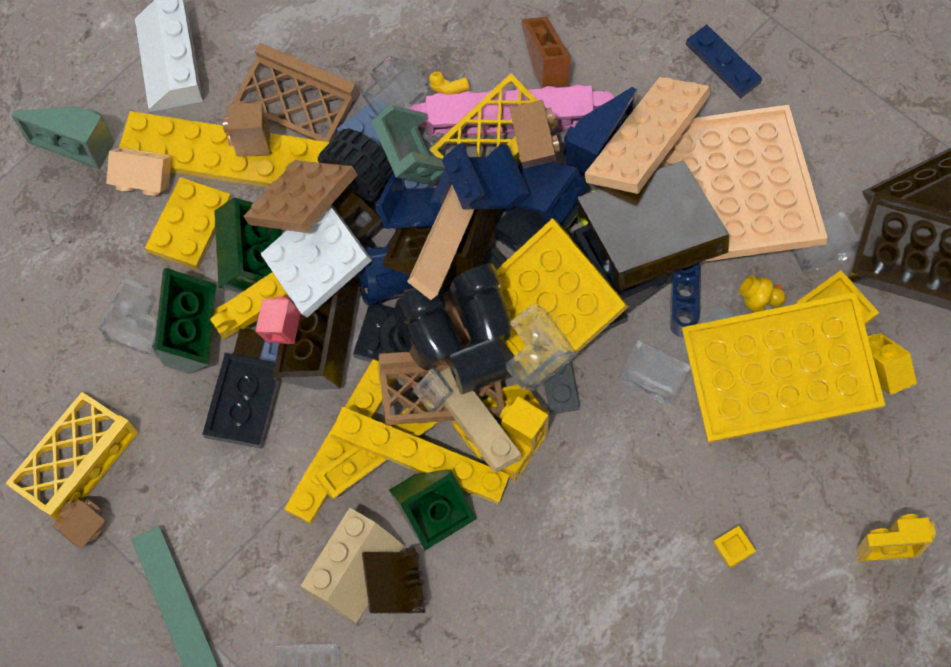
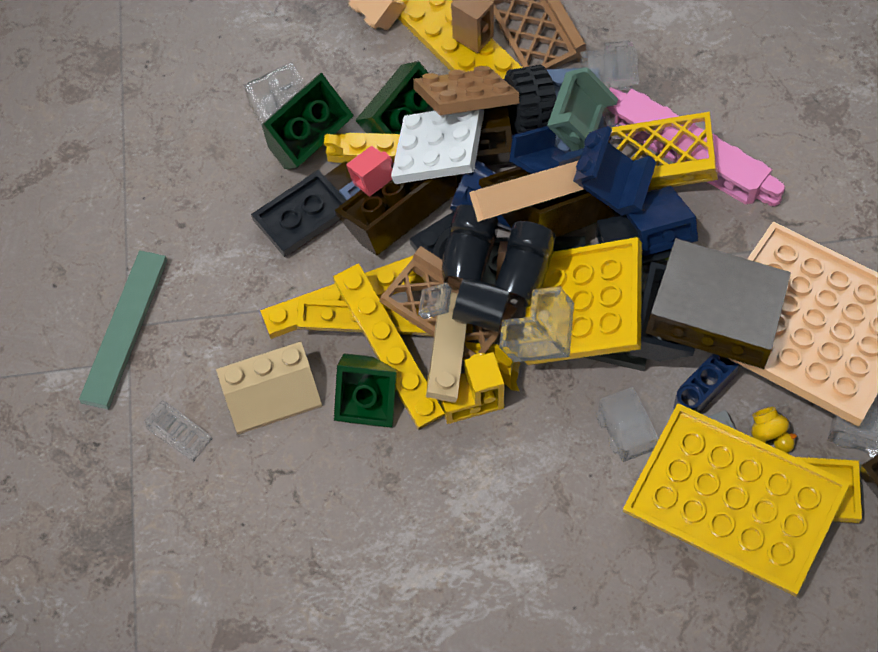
camera: 40 degrees right, 5 degrees down
(79, 522) = (114, 211): medium nougat brick -> none
(87, 468) = (155, 180): yellow fence -> none
(187, 223) = (373, 63): yellow plate -> none
(393, 582) = (286, 422): dark brown hinge -> none
(444, 86) = (656, 94): yellow arm -> none
(534, 134) = (684, 167): medium nougat brick -> none
(546, 52) = (760, 122): dark orange slope -> none
(561, 391) = (544, 381): dark grey plate -> none
(596, 130) = (746, 209): dark blue slope -> none
(647, 135) = (782, 235): light nougat plate -> none
(734, 547) = (569, 606): yellow plate -> none
(892, 364) = (833, 565): yellow slope -> none

